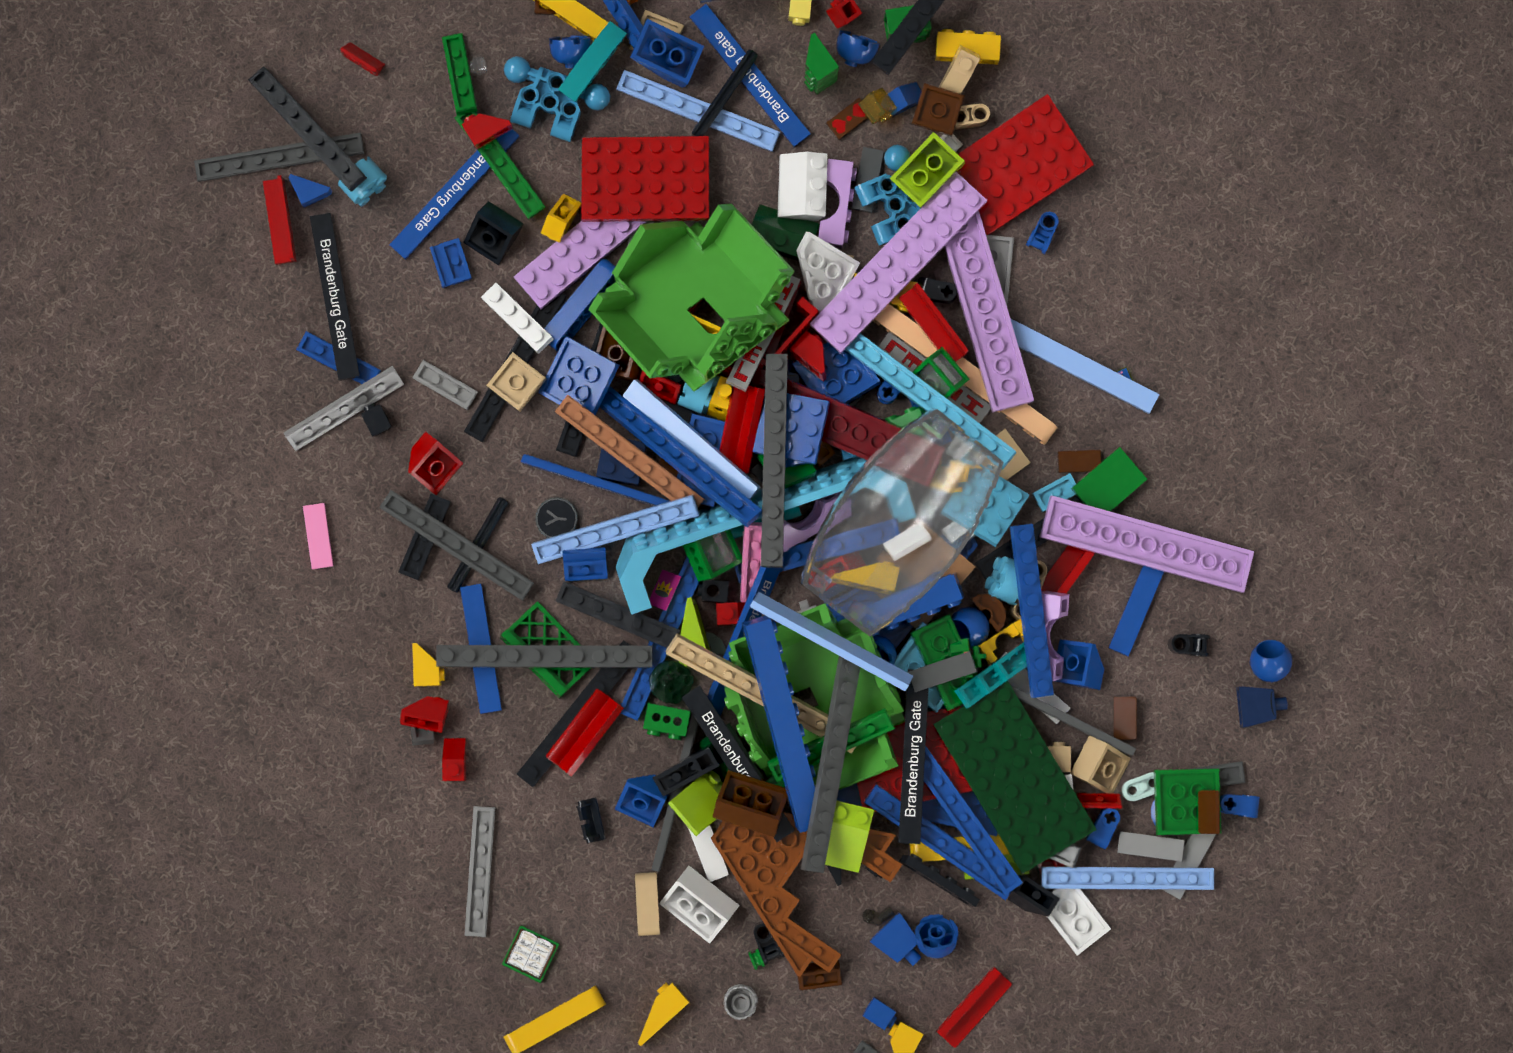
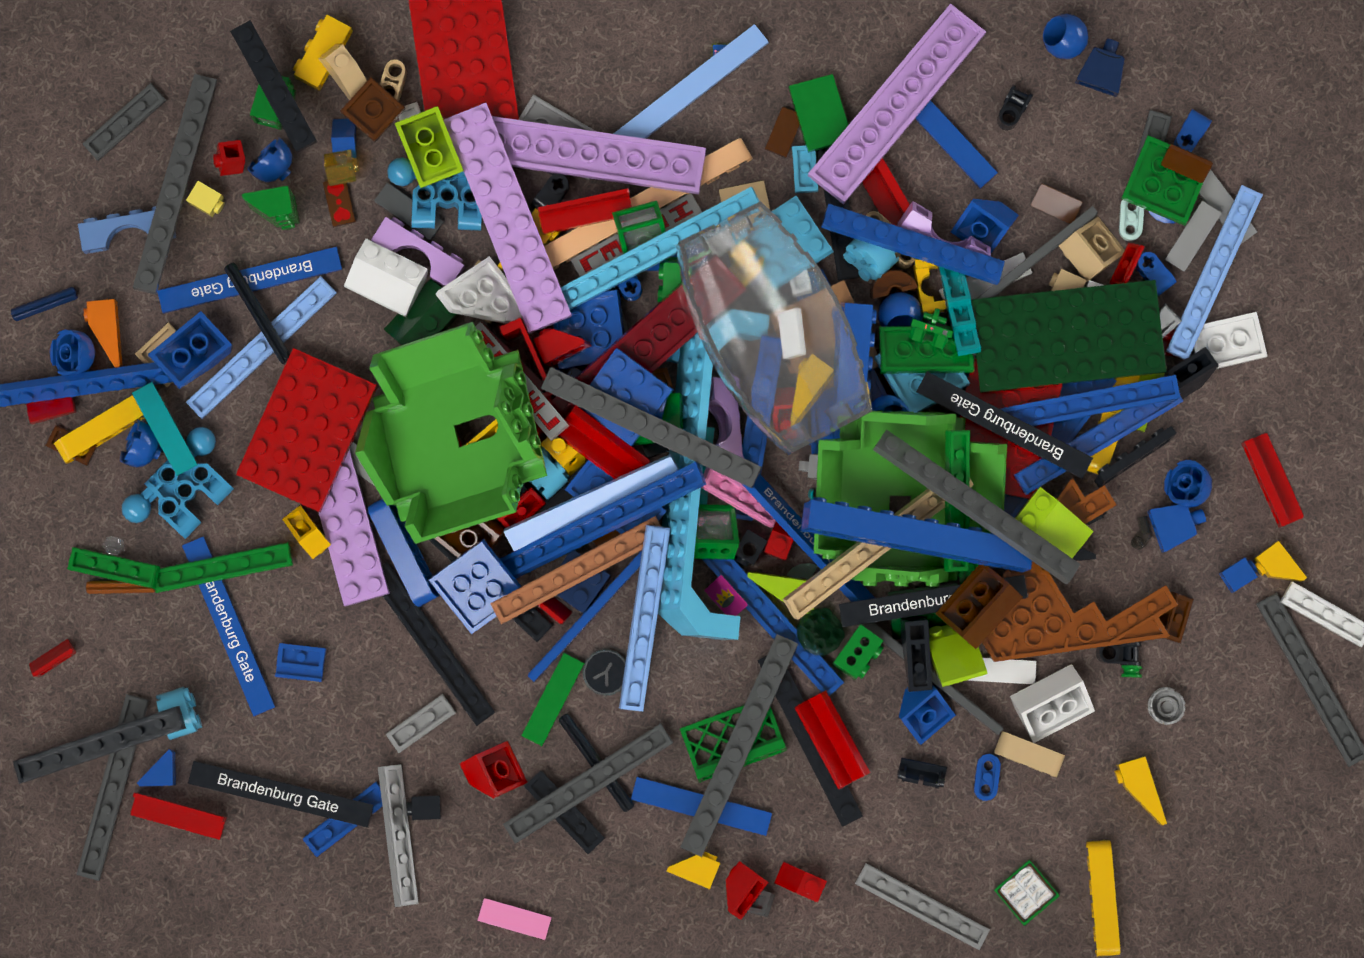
camera: 60 degrees left, 0 degrees up
(444, 81) = (111, 587): none -> dark orange axle
(485, 128) = (182, 567): red slope -> none
(493, 232) = (290, 606): black slope -> none
(514, 485) = (552, 699): none -> green tile
(516, 382) = (451, 650): tan tile -> none
(517, 318) = (387, 621): white plate -> none
(585, 564) = (665, 664): blue plate -> none
(589, 453) = (556, 610): none -> red slope
(612, 877) = (987, 777): none -> blue plate
(616, 615) = (731, 654): black plate -> none
(831, 641) = (860, 450): light blue tile -> none
(943, 671) = (934, 358): dark grey tile -> none
(1042, 235) = (543, 64): blue piece -> none

